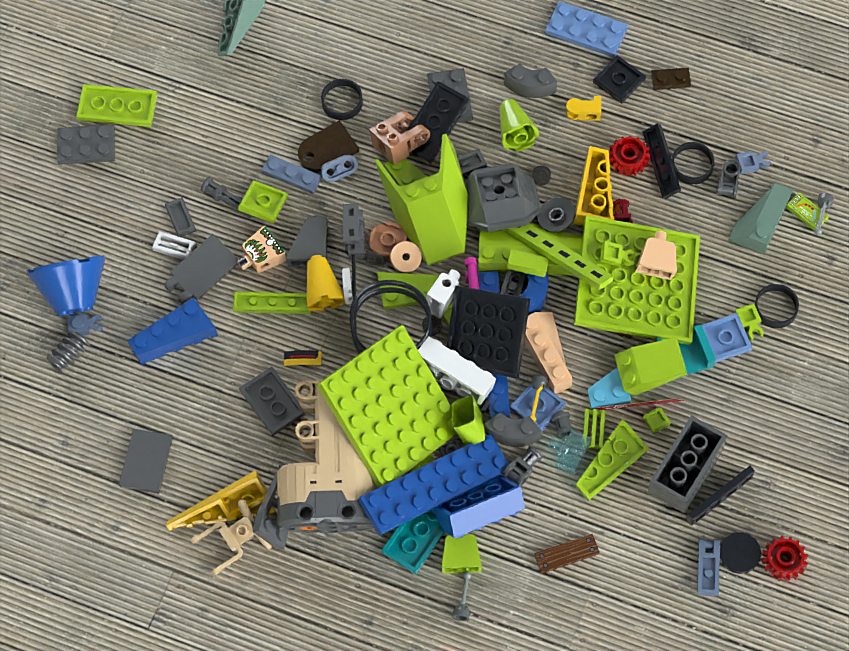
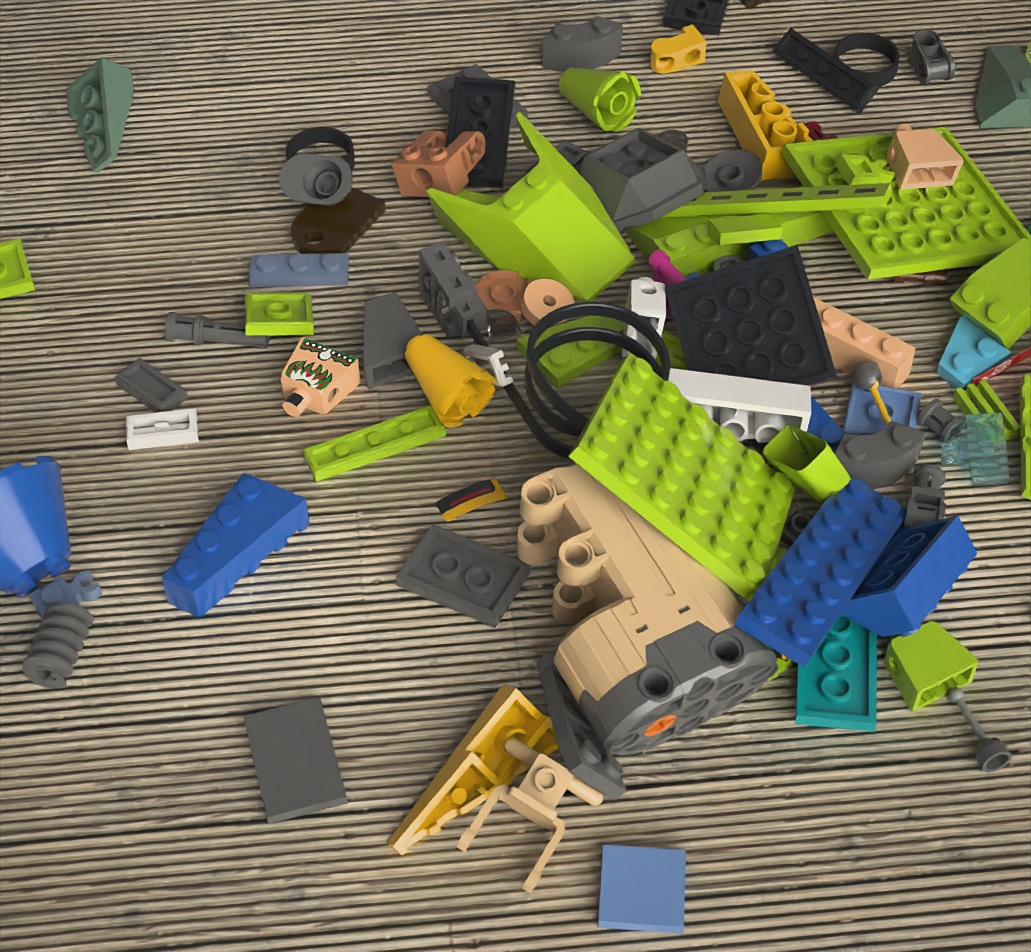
camera: 30 degrees left, 15 degrees down
(202, 269) = (229, 438): dark grey tile -> none
(263, 598) = (642, 889): none -> medium blue tile
(322, 123) = (316, 179): none -> dark grey piece
(339, 169) = (369, 234): sand blue plate -> none
(629, 165) = (783, 75): red gear -> none
(750, 162) = (946, 30): sand blue plate -> none

